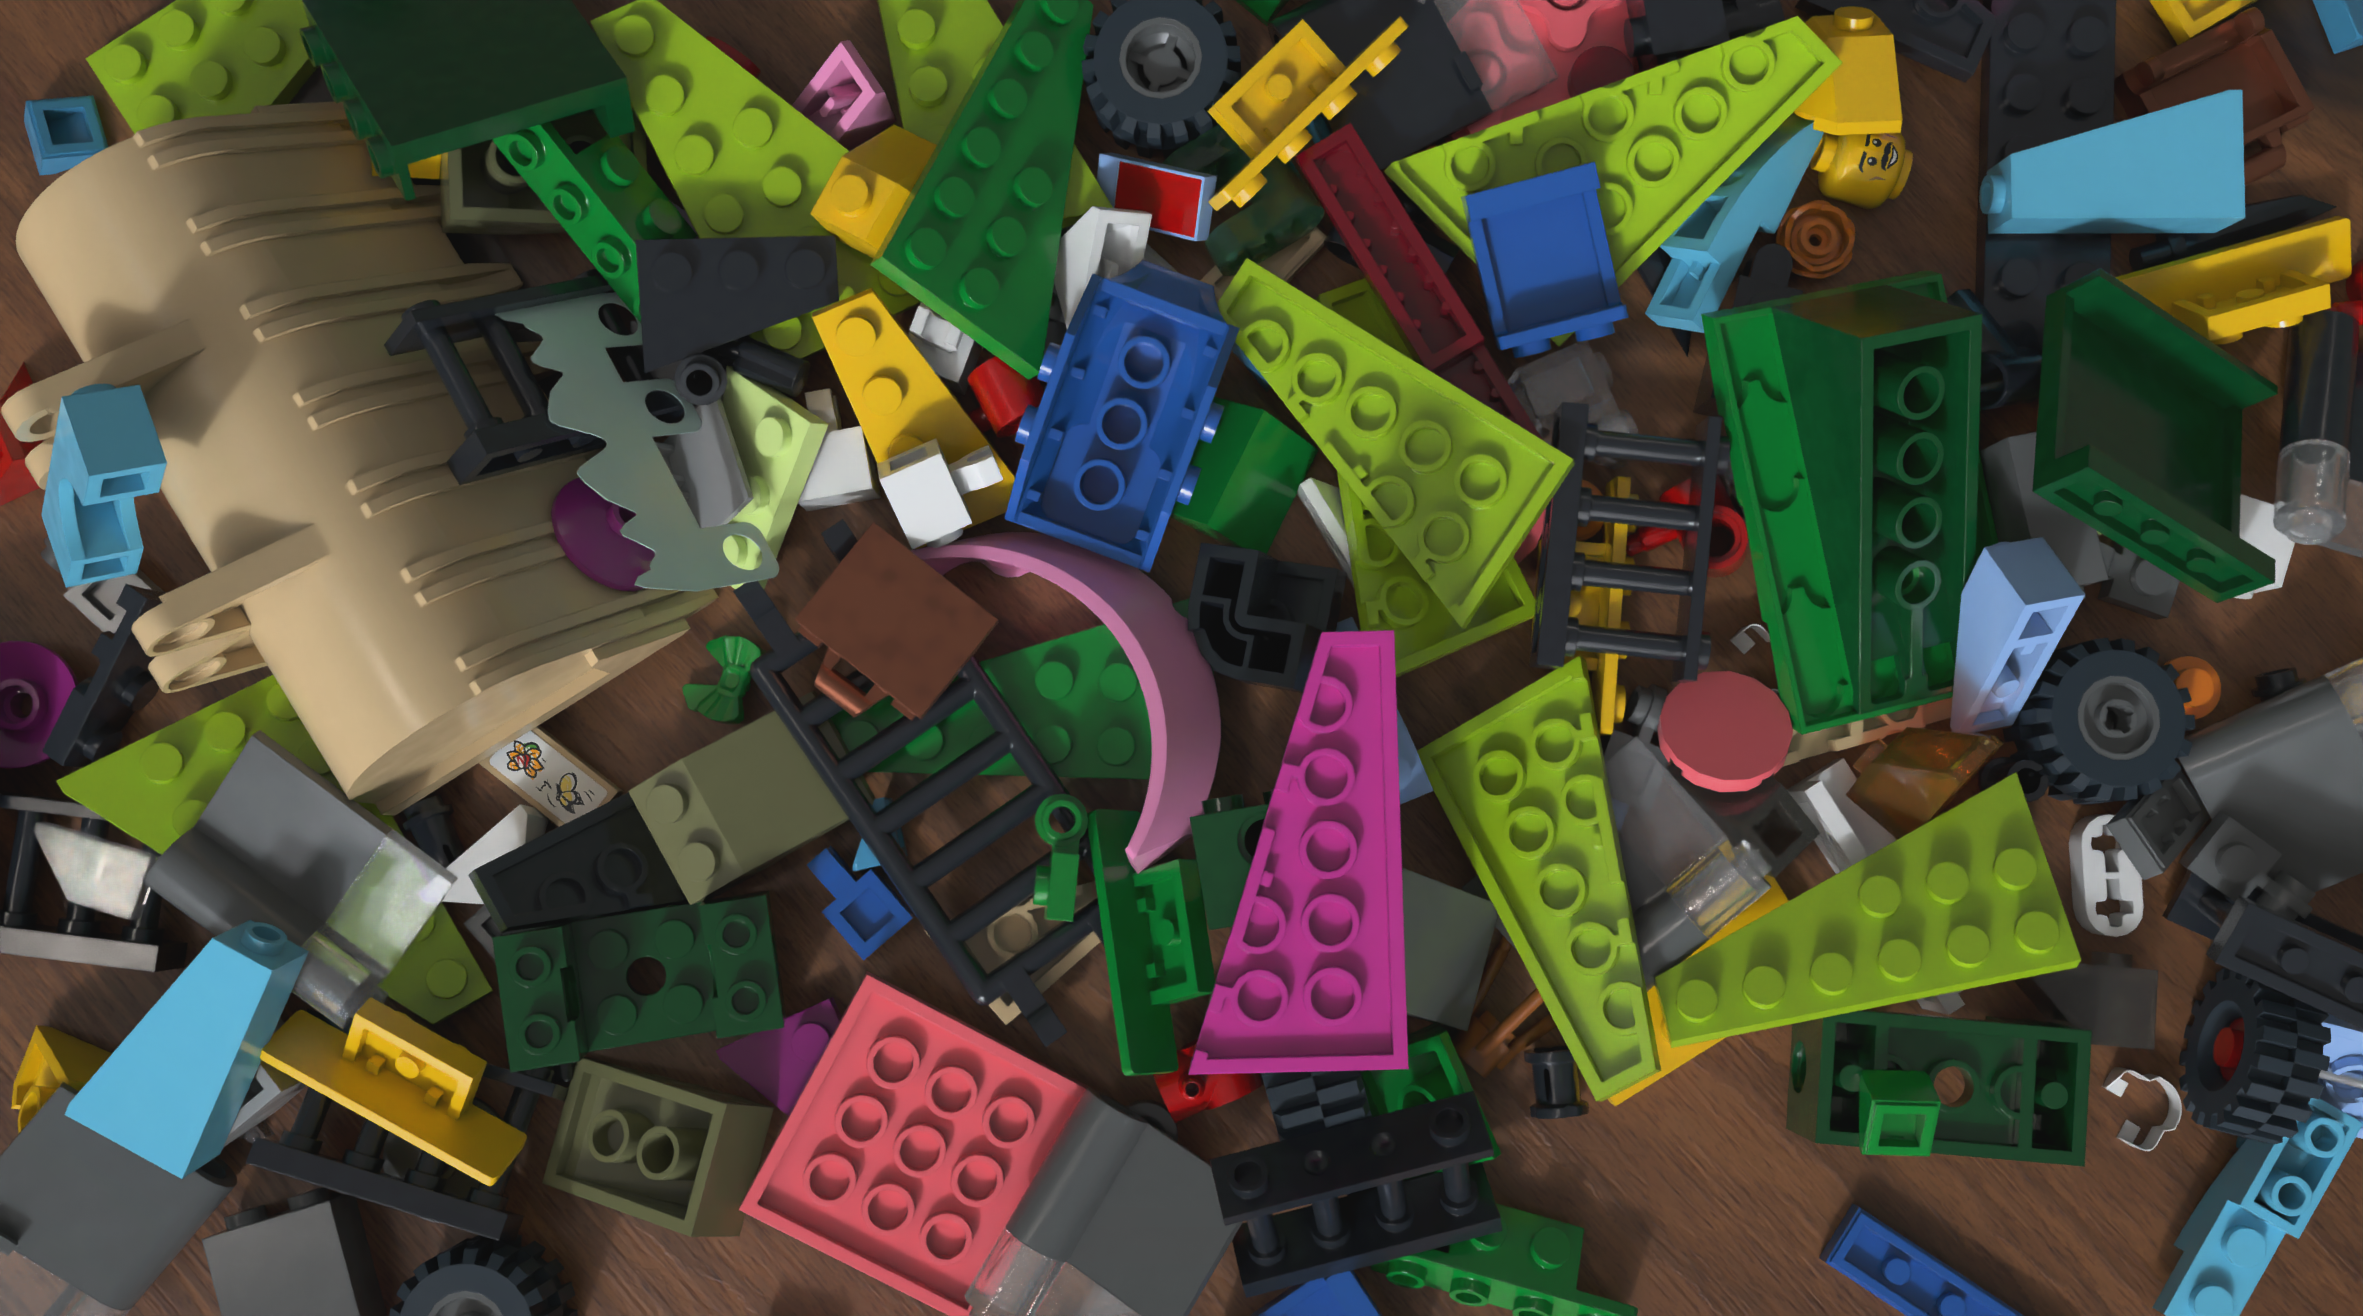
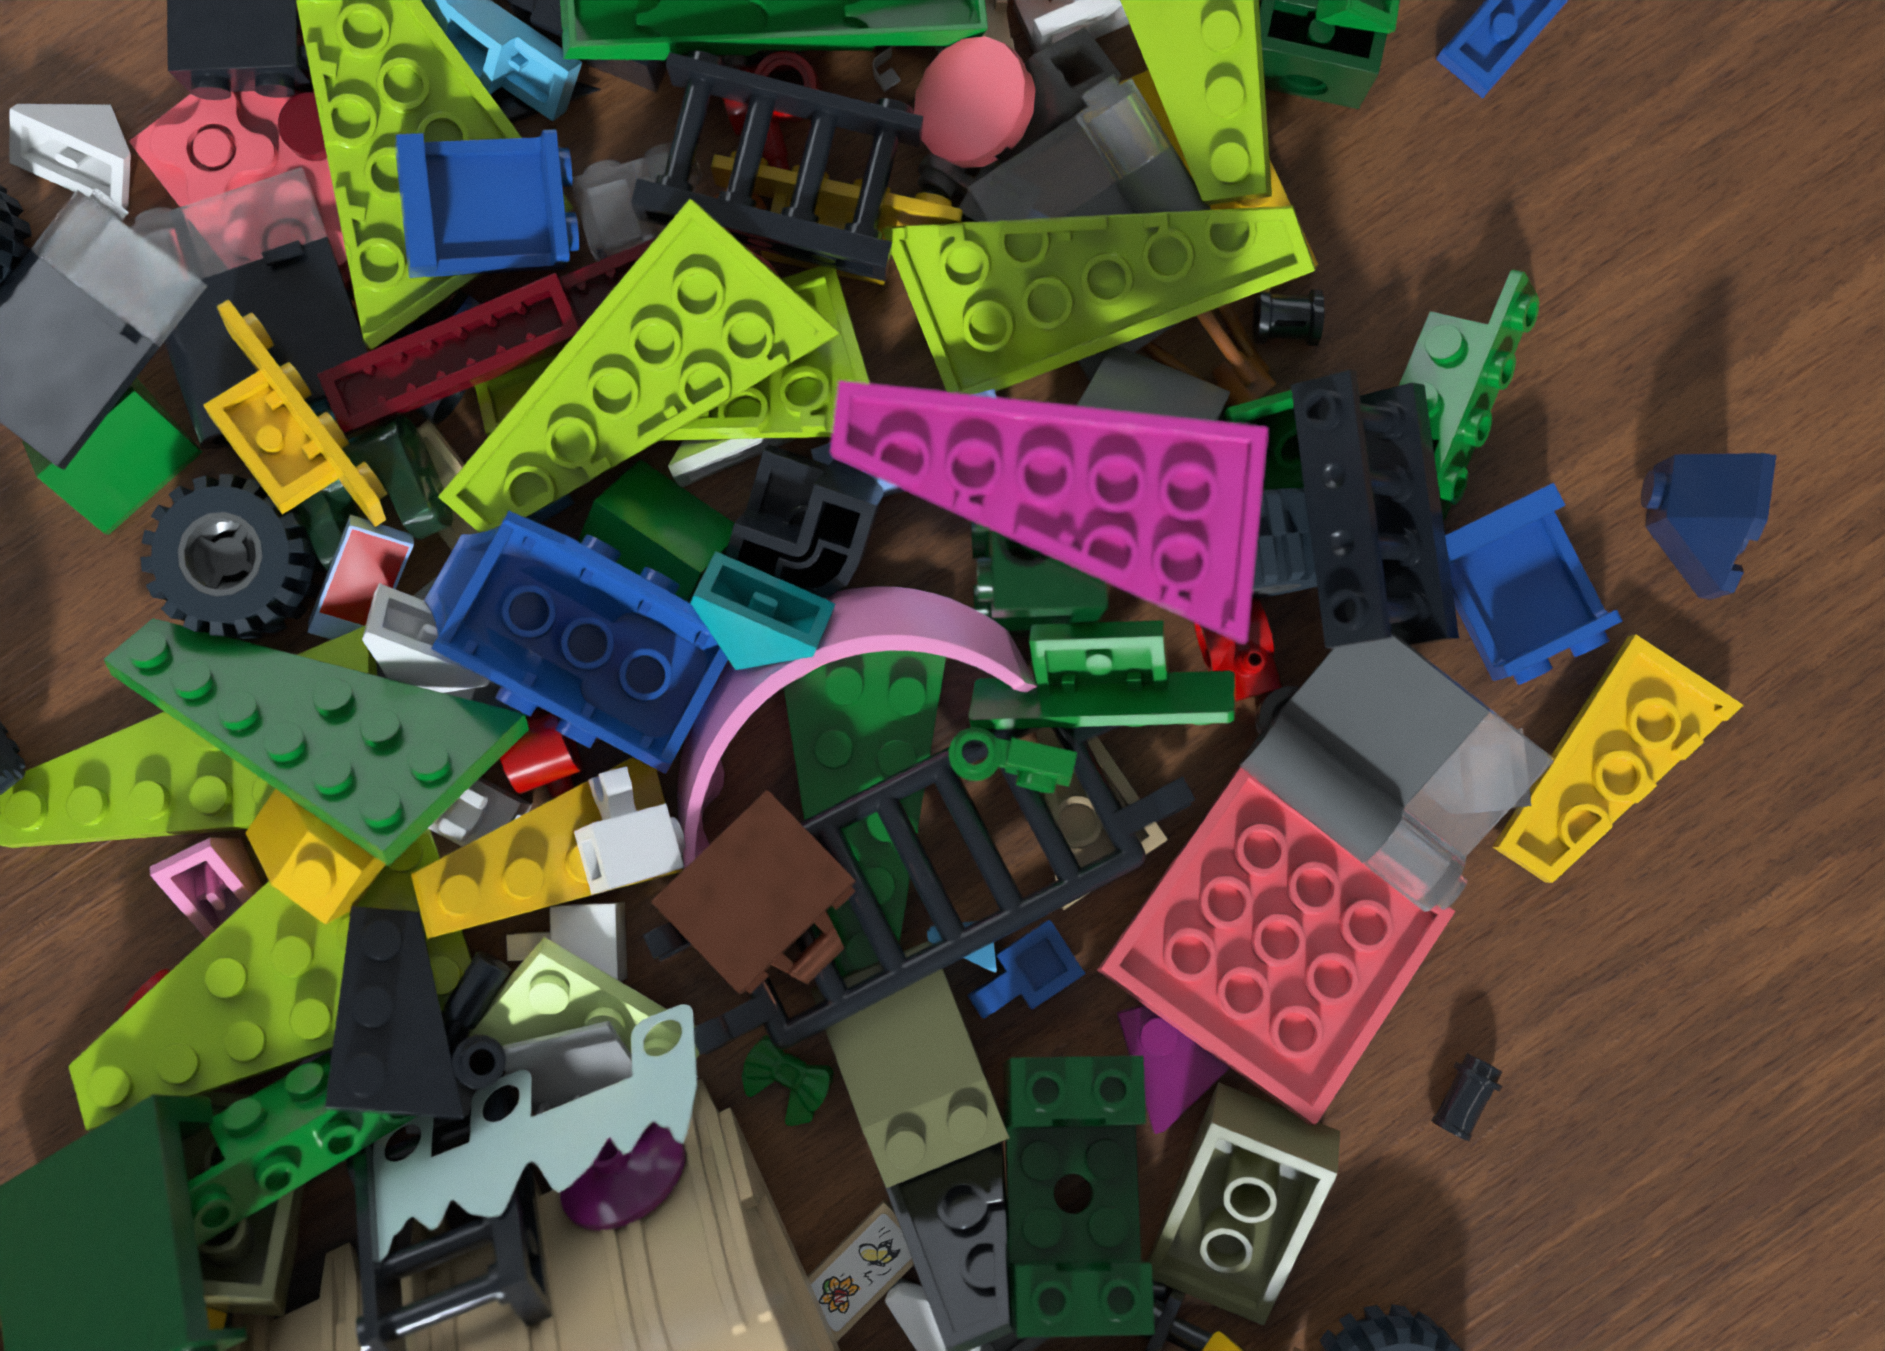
camera: 85 degrees left, 0 degrees up
(1170, 587) = (758, 615): none -> teal slope

